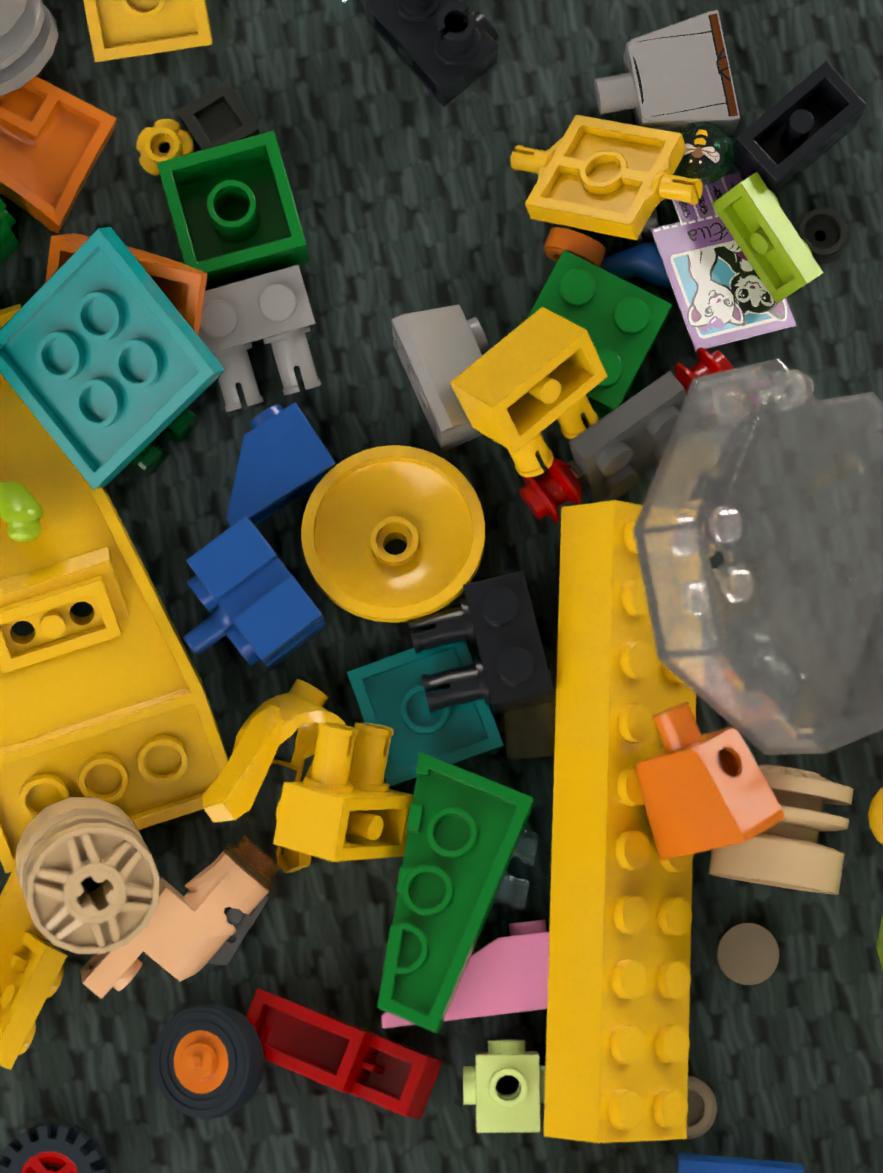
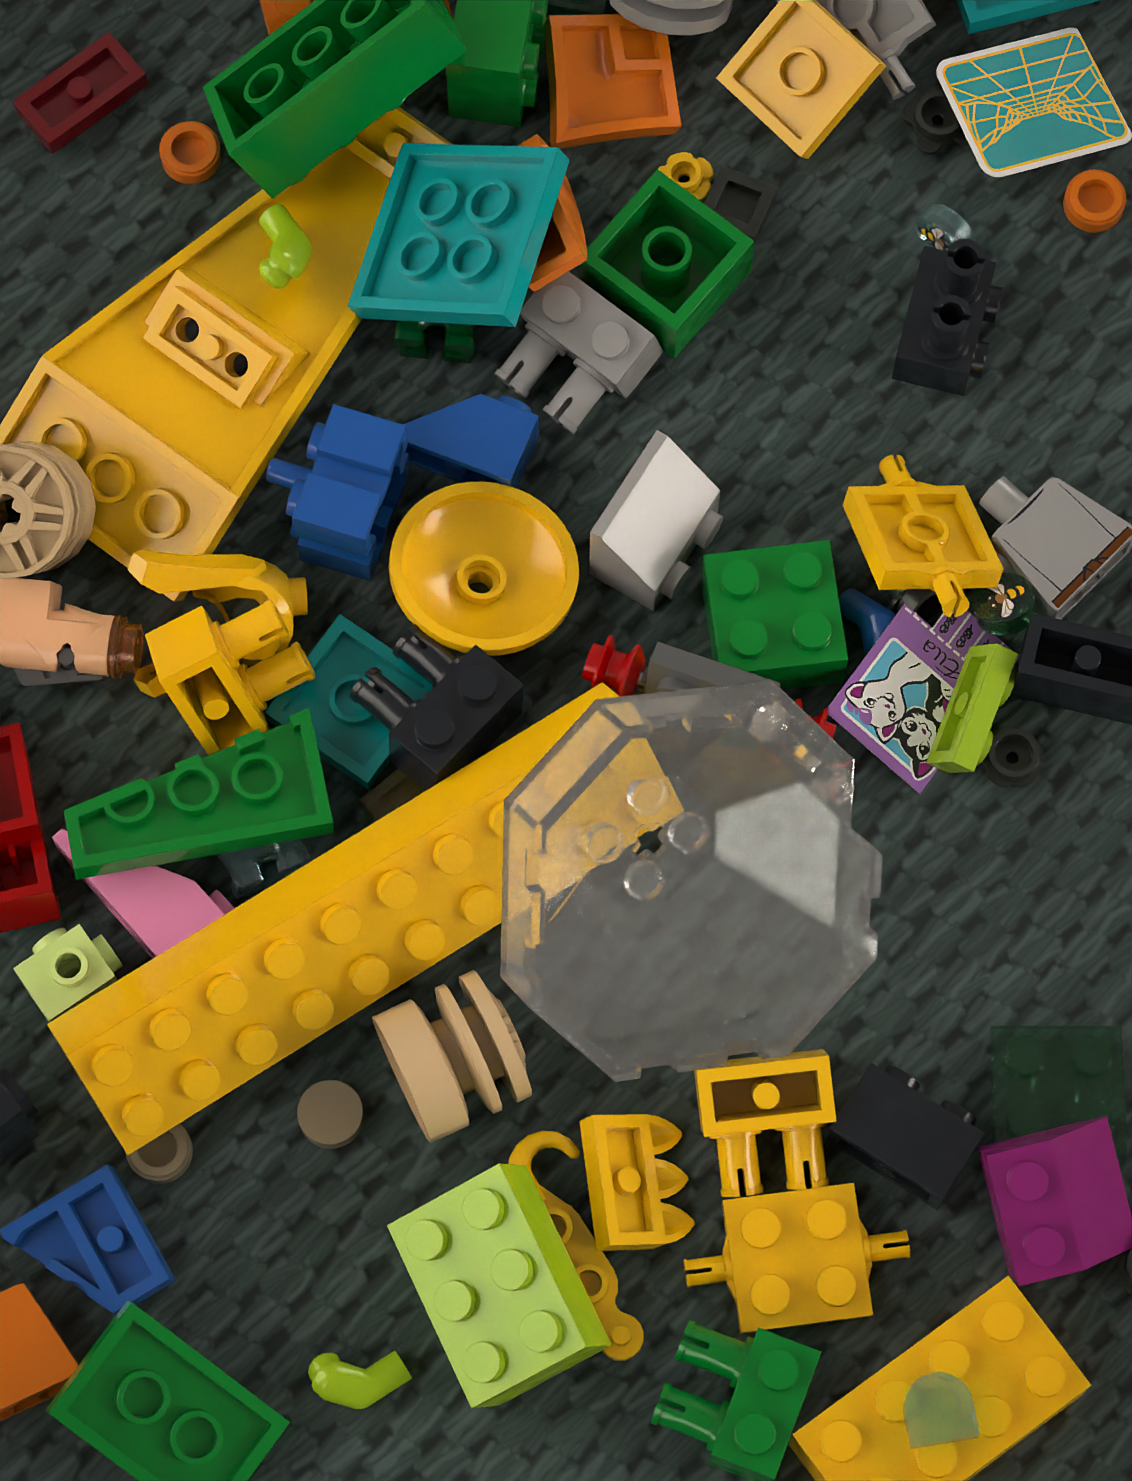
camera: 55 degrees right, 10 degrees down
(529, 383) = (682, 572): yellow brick -> none
(575, 243) = (845, 559): orange tile -> none
(702, 788) = (434, 938): orange torso -> none

